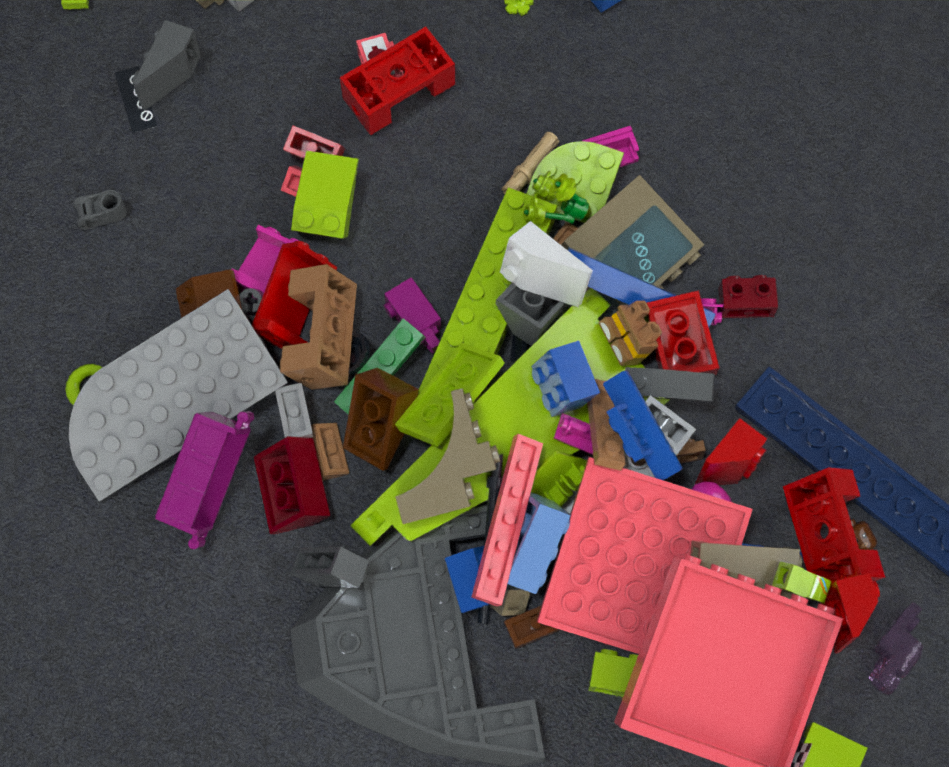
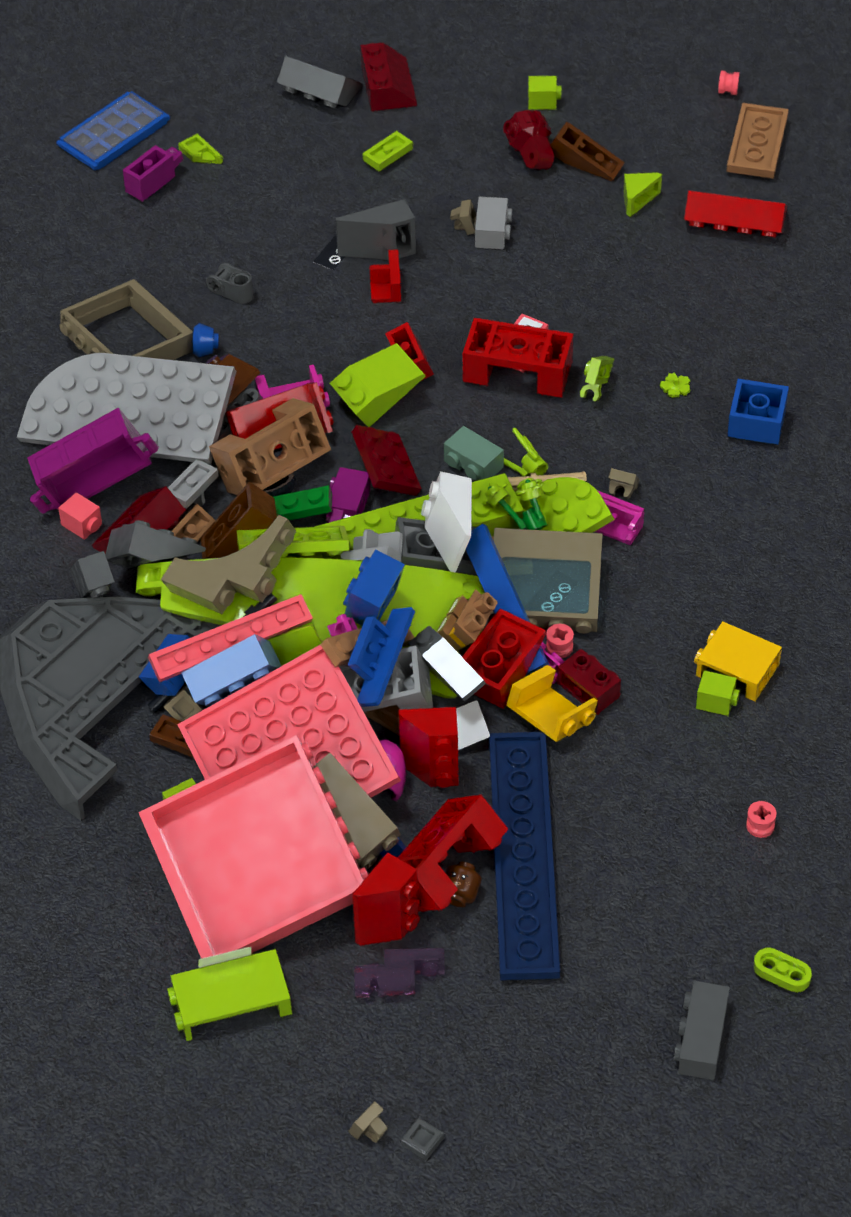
camera: 50 degrees right, 20 degrees down
(68, 291) = (132, 294): none -> dark tan window
(142, 279) = (204, 340): none -> blue cone
(211, 98) = (386, 280): none -> red panel
(237, 520) = (80, 516): none -> coral brick
(342, 502) = (140, 544): none -> dark grey slope
(405, 254) = (386, 460): none -> dark red plate
(457, 190) = (474, 454): none -> sand green brick
(469, 42) = (597, 373): none -> lime plate
(504, 159) = (531, 462): none -> lime plant
(513, 340) = (365, 545): none -> light grey panel
(580, 114) = (624, 480): none -> dark tan tile
(690, 275) = (554, 643): none -> coral wheel
(711, 419) = (470, 725): none -> white sticker
(752, 344) = (546, 708): none -> yellow panel
(801, 582) = (368, 842): lime leg -> none
(818, 184) = (740, 656): none -> yellow panel
(835, 225) = (717, 693): none -> lime brick

